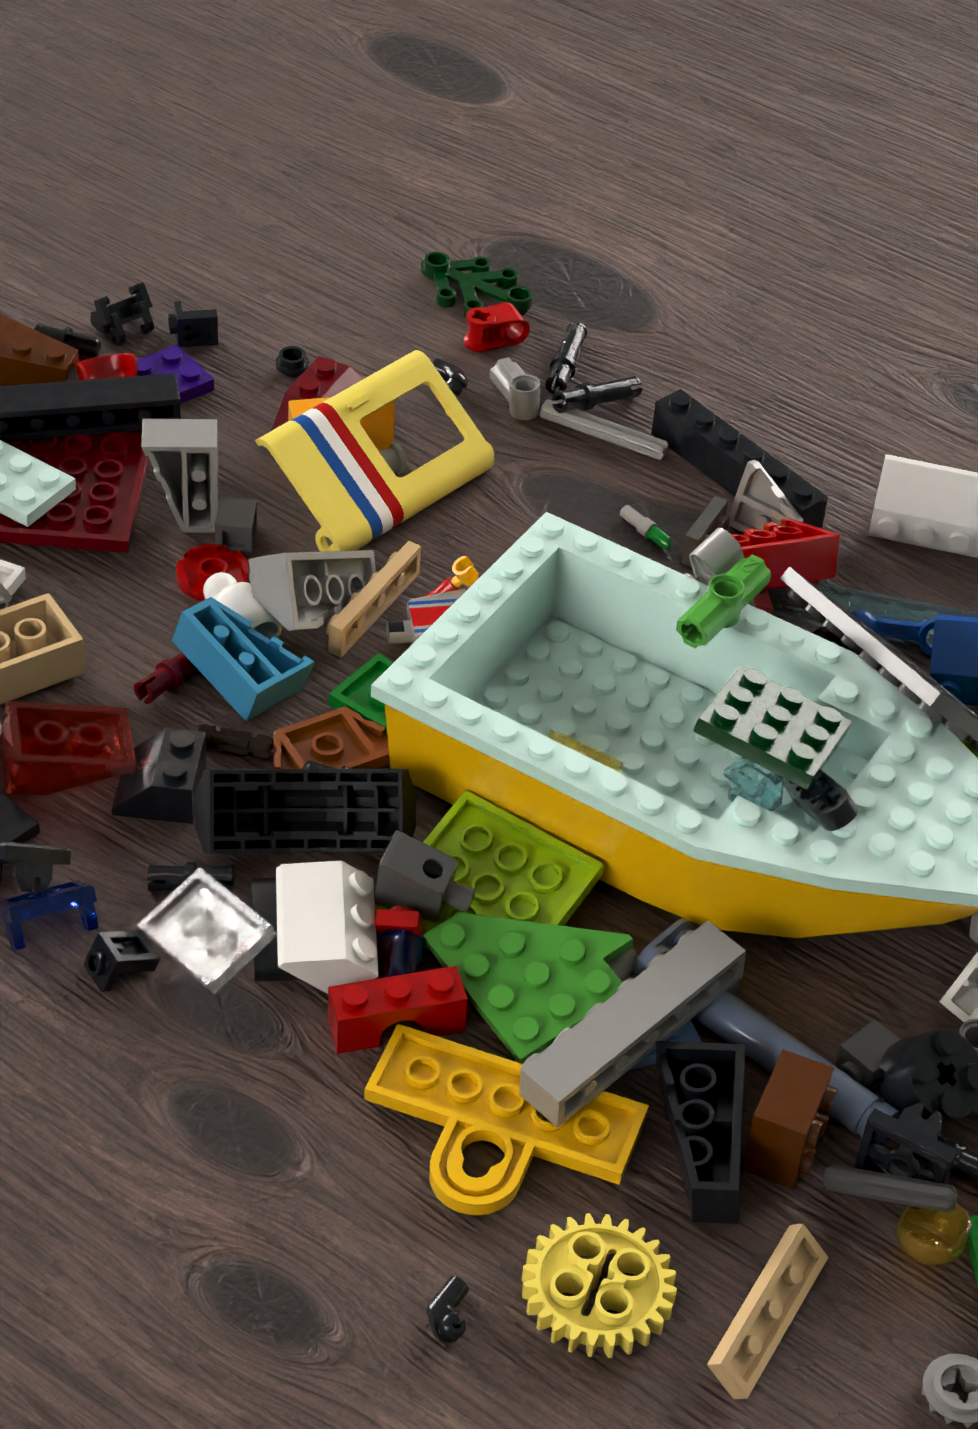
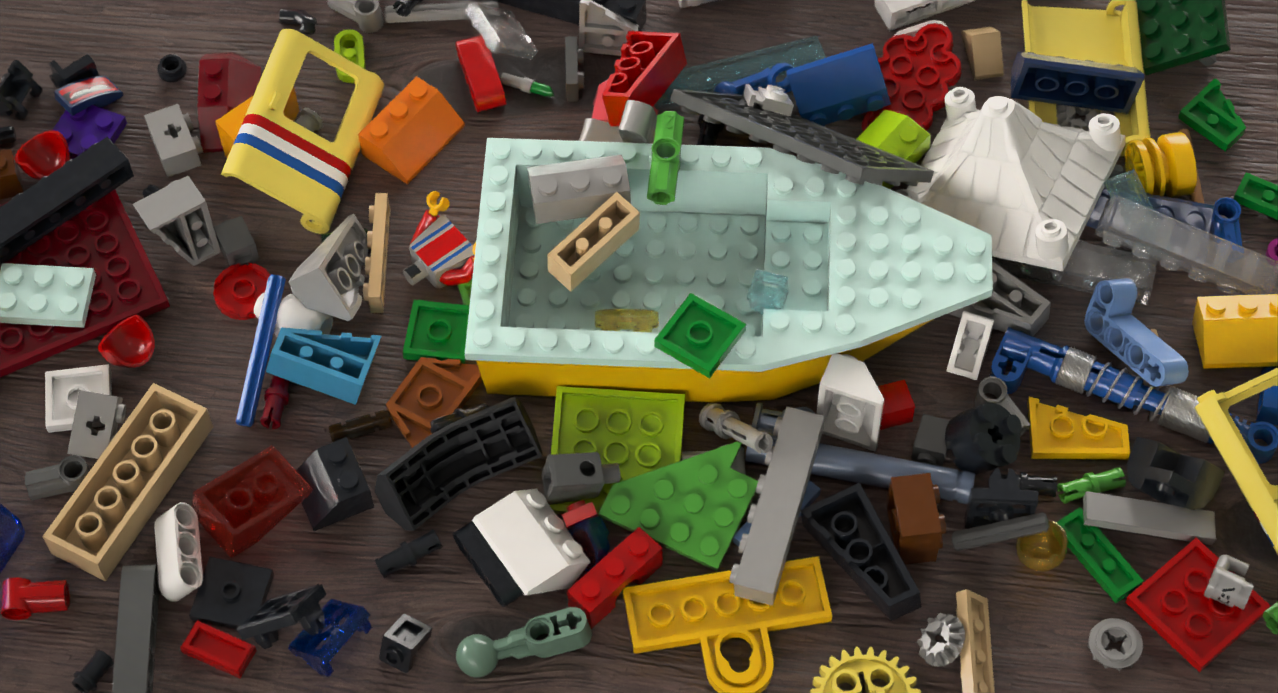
camera: 25 degrees left, 15 degrees up
(59, 561) = (128, 343): none -> red helmet
(161, 639) = (260, 351): none -> blue axle
(187, 341) = (86, 92): none -> slope
(207, 930) = (453, 591): clear plate -> none
(244, 415) = (173, 139): none -> light grey brick
(272, 1024) = (479, 654): none -> sand green beam
(486, 416) = (347, 39): none -> lime plate
(486, 507) = (410, 130): none -> orange slope
(583, 636) = (593, 241): none -> tan brick
(603, 494) = (480, 73): none -> red beam
(605, 591) = (576, 187): none -> light grey slope
(639, 925) = (728, 425): none -> light grey pin
(640, 777) = (700, 335): none -> green plate
(651, 464) = (501, 31): none -> clear plate
(726, 1280) = (940, 653): none -> light grey gear
(773, 726) = (759, 244): plate -> none
(785, 956) = (850, 402): none -> white slope
(824, 801) = (829, 280): black beam -> none
(842, 997) = (898, 404): none -> red brick
(907, 644) = (769, 99): none -> white plate

